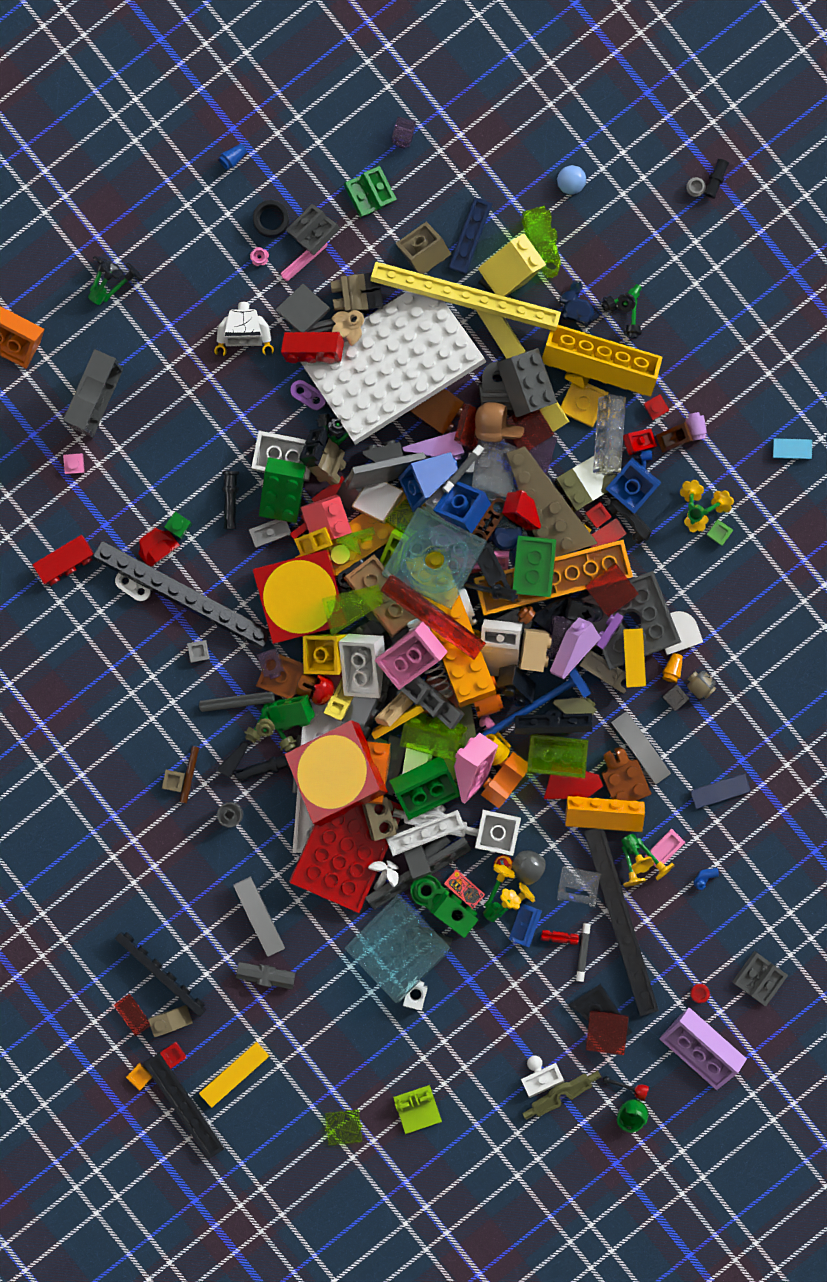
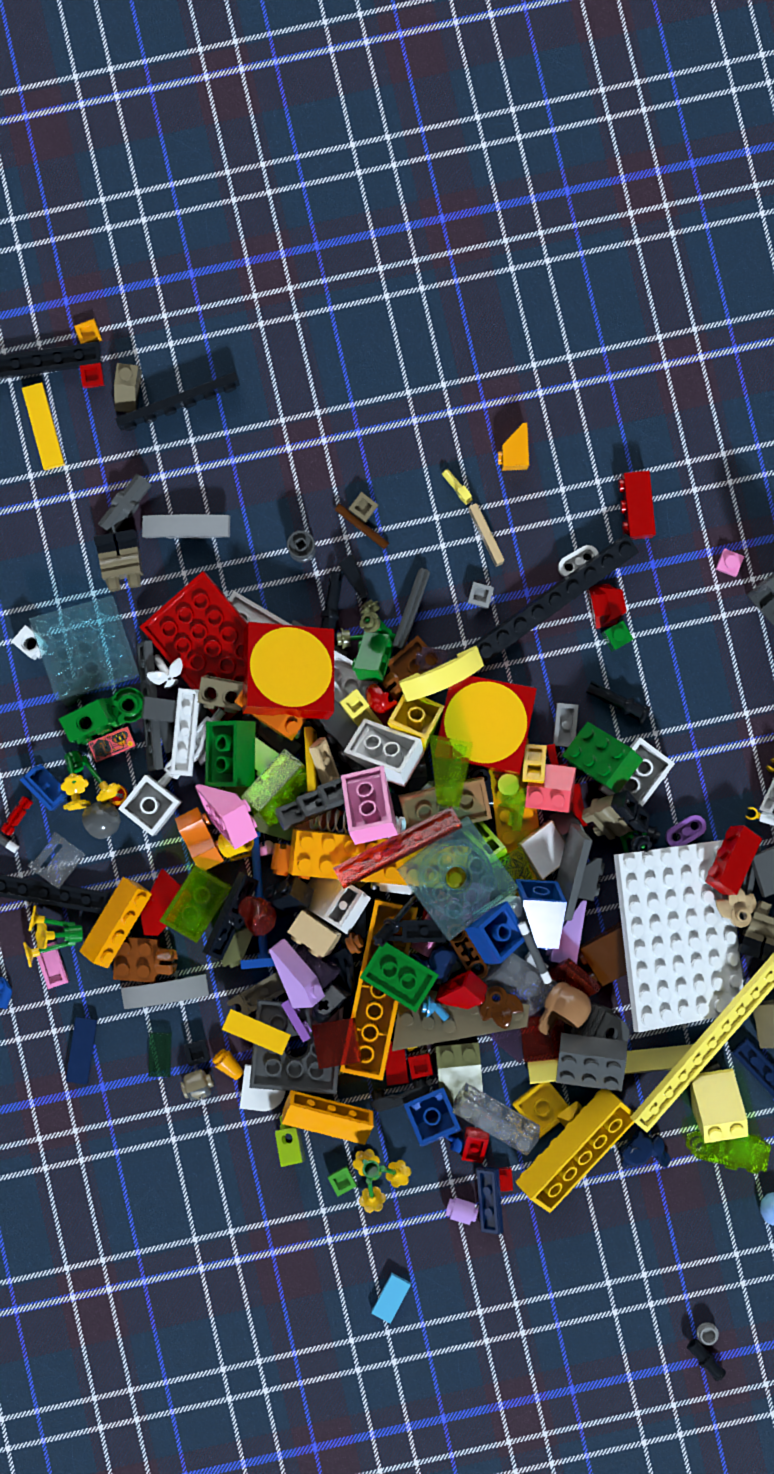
camera: 120 degrees right, 0 degrees up
(67, 680) = (514, 451): none -> light orange slope
(121, 708) = (461, 491): none -> light yellow bar
(132, 1014) = (152, 355): clear red tile -> none
(147, 670) = (486, 534): none -> tan tile
(280, 648) = (443, 676): none -> light yellow slope
(319, 956) = (120, 566): none -> dark tan hips
(521, 473) = (500, 1010): none -> reddish brown plate
(541, 702) = (258, 915): none -> clear red hair
(546, 530) = (429, 1006): none -> dark azure plate
(626, 302) = (622, 1206): black plant -> none
(674, 437) = (461, 1184): reddish brown slope -> none
(674, 568) = (327, 1117): none -> light orange brick
(676, 408) = (489, 1200): none -> dark blue tile
(692, 726) = (160, 1054): none -> clear green tile
(716, 583) = (291, 1152): none -> lime torso

